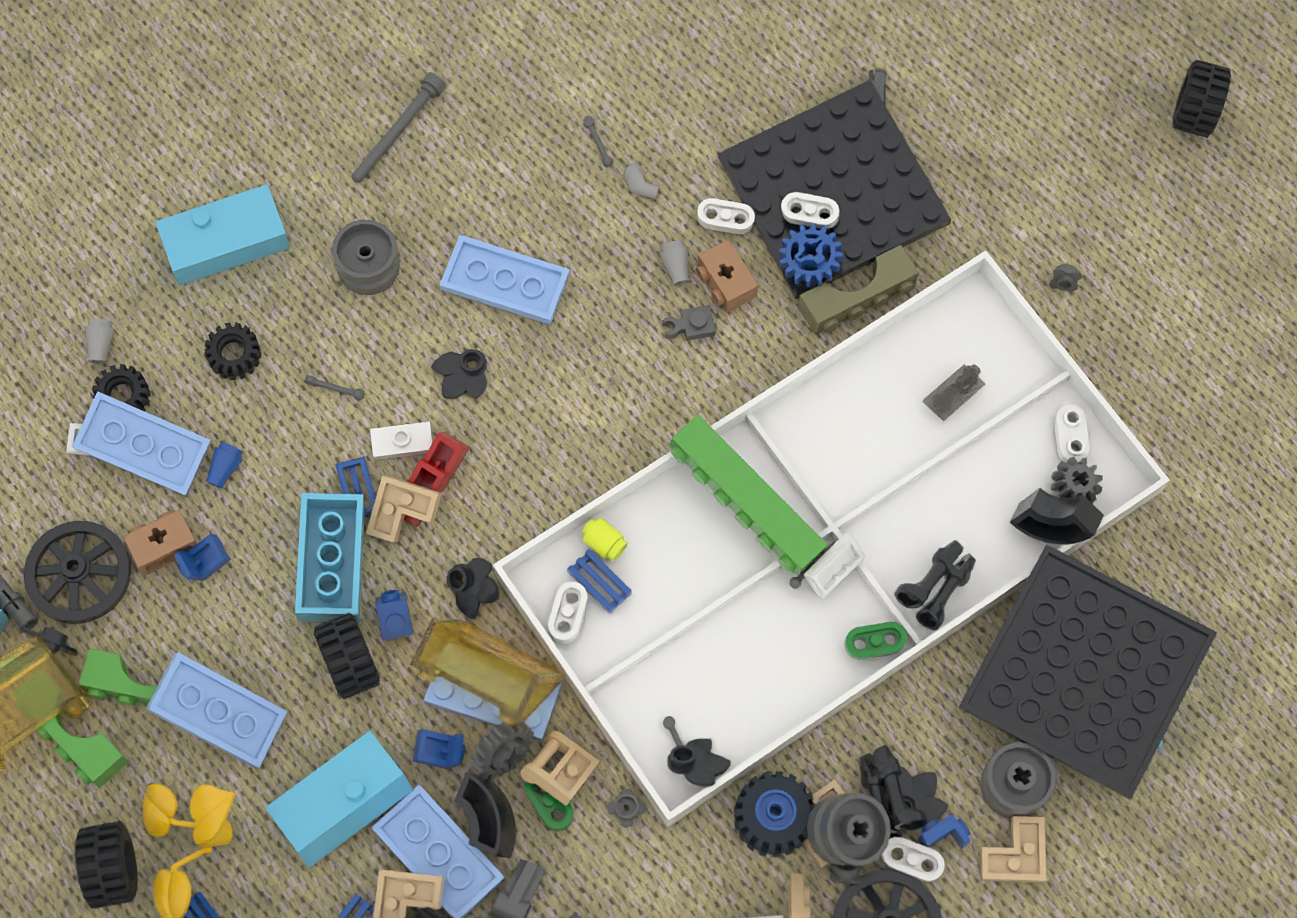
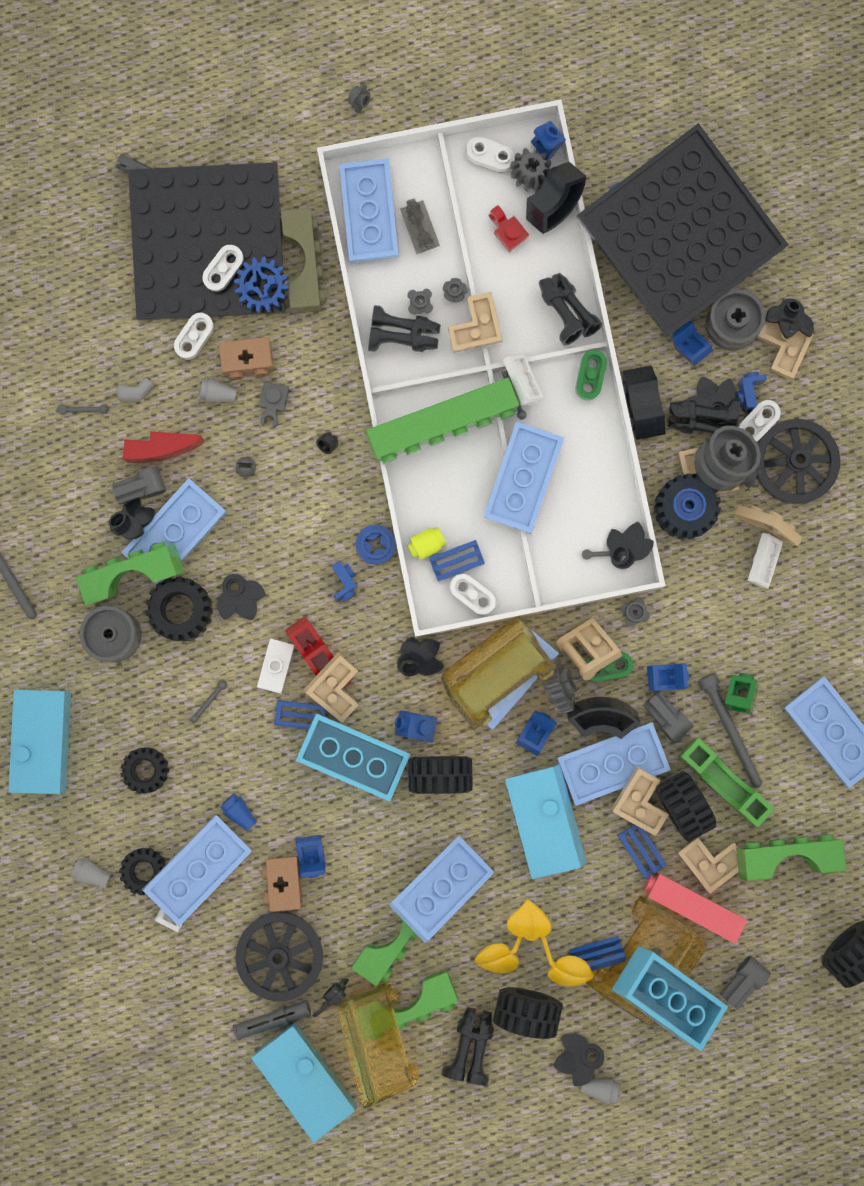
camera: 60 degrees left, 15 degrees up
(63, 828) = (467, 1034): none -> black piece
(420, 229) = (103, 583): none -> bright green arch
(422, 293) = (160, 599): none -> black tyre
(494, 229) = (131, 520): none -> black plate
(531, 471) = (345, 574): none -> blue bracket
(544, 231) = (145, 484): none -> dark grey piece
(564, 874) = (668, 677): none -> blue bracket
(571, 480) = (372, 533): none -> blue gear
(590, 228) = (160, 447): none -> red slope
(602, 324) = (245, 472): none -> dark grey hinge
(672, 395) = (327, 442): none -> black hinge
(724, 611) = (523, 477): none -> light blue plate
(827, 434) = (413, 339): none -> black piece
(869, 433) = (425, 306): none -> dark grey plate
(871, 500) = (483, 329): none -> tan plate
(873, 715) = (643, 402): none -> black brick
(901, 463) = (454, 296): none -> dark grey plate
(945, 333) = (369, 210): none -> light blue plate
(967, 742) = (691, 343): none -> blue bracket
(995, 488) = (509, 231): none -> red plate
(1048, 845) = (790, 318): none -> black plate
(1118, 485) = (547, 139): none -> blue bracket

